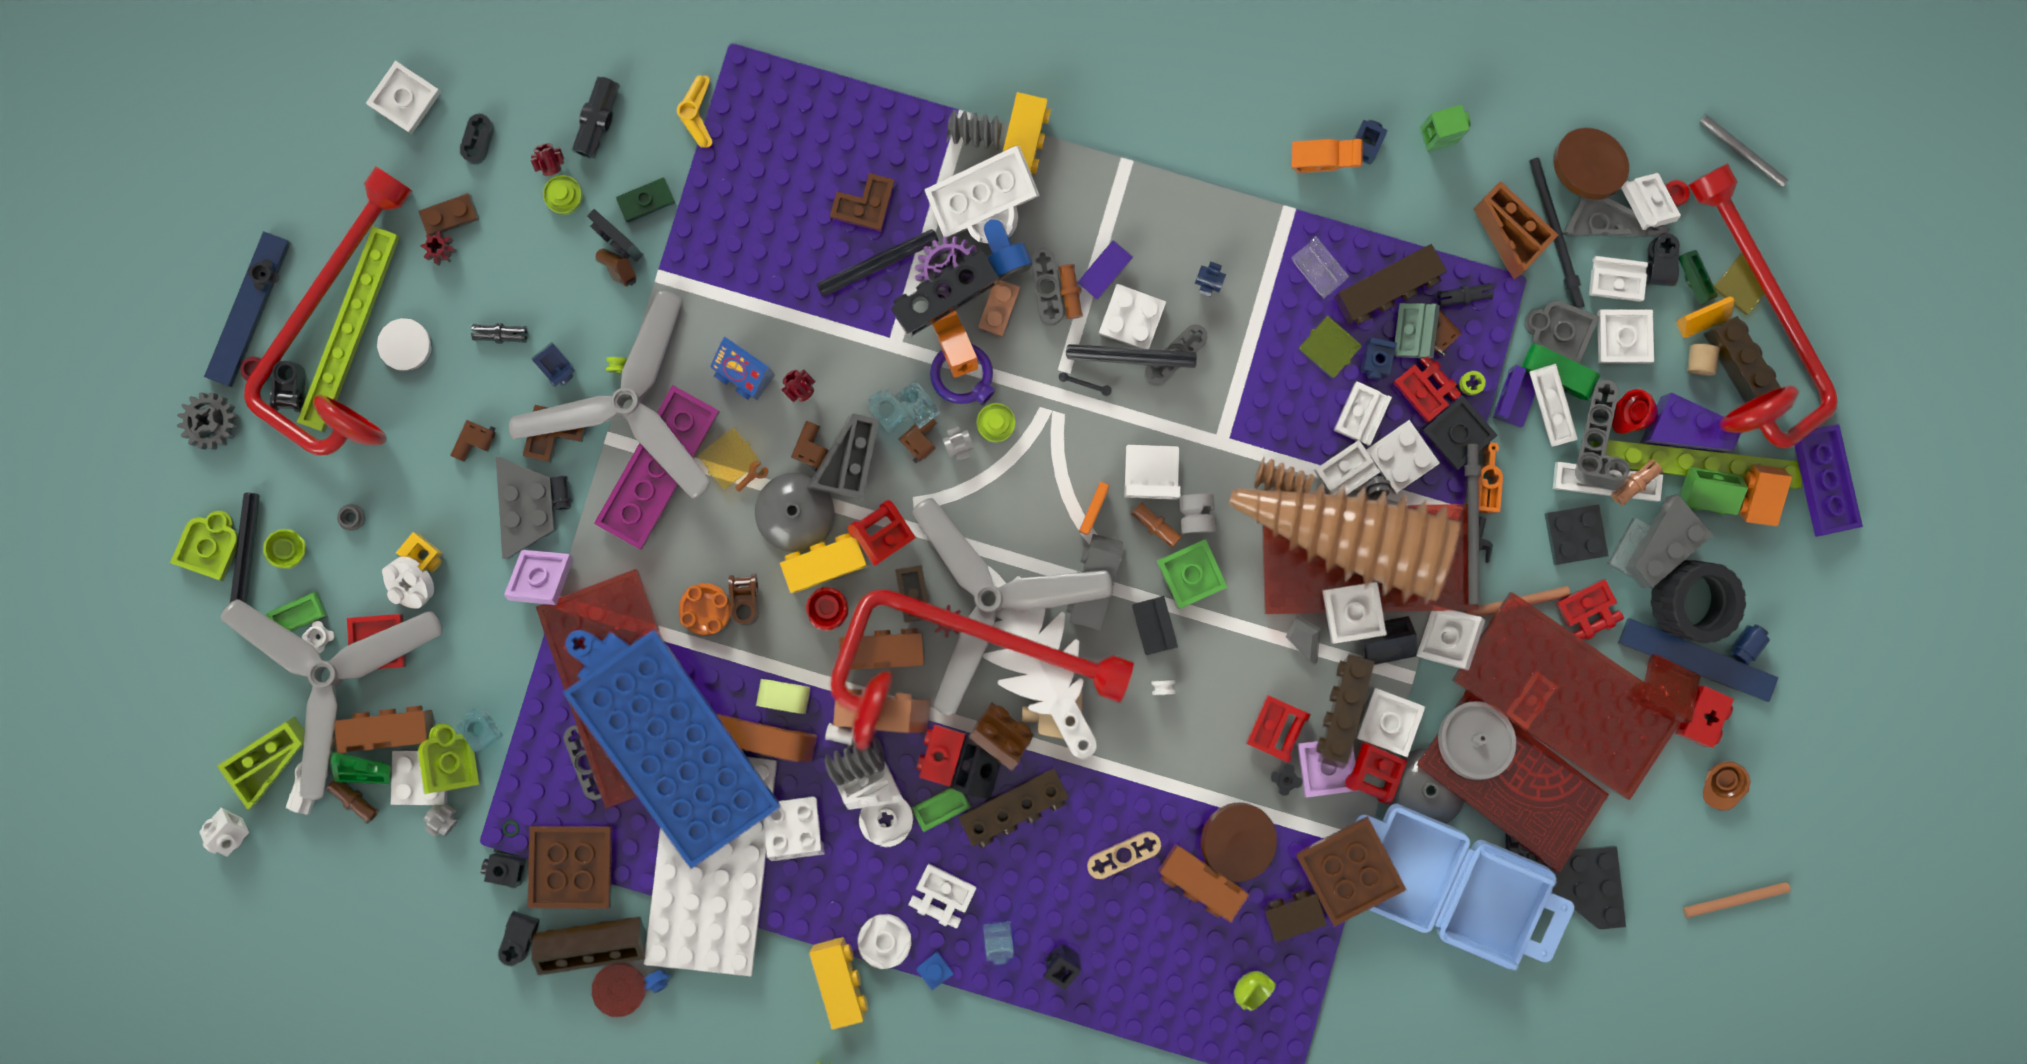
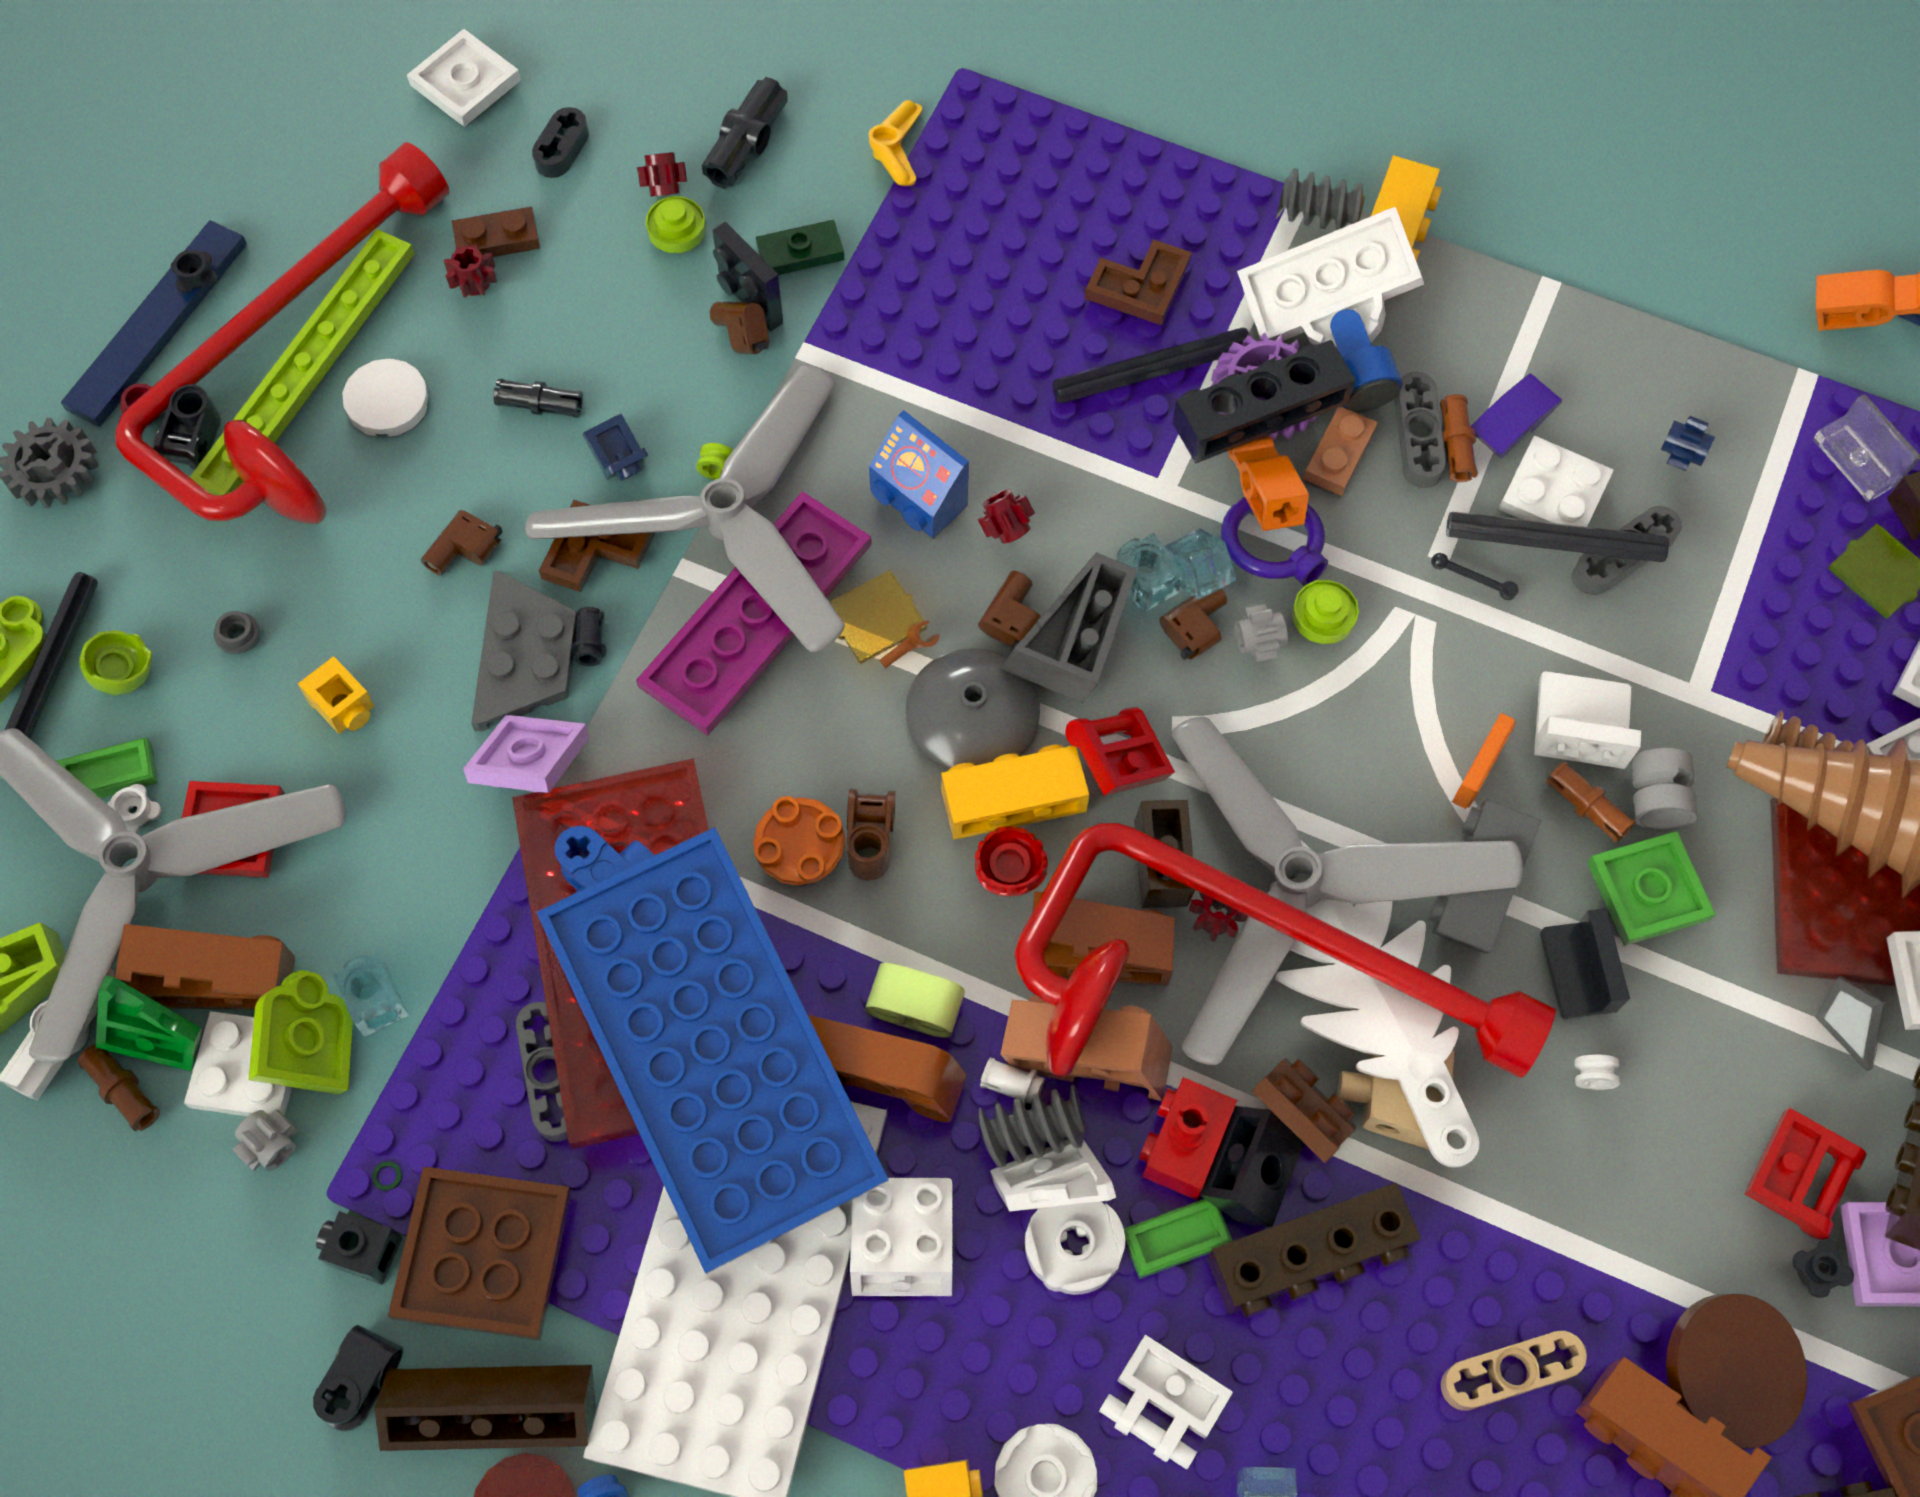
camera: 10 degrees right, 20 degrees down
(399, 577) = (285, 741): white plate -> none

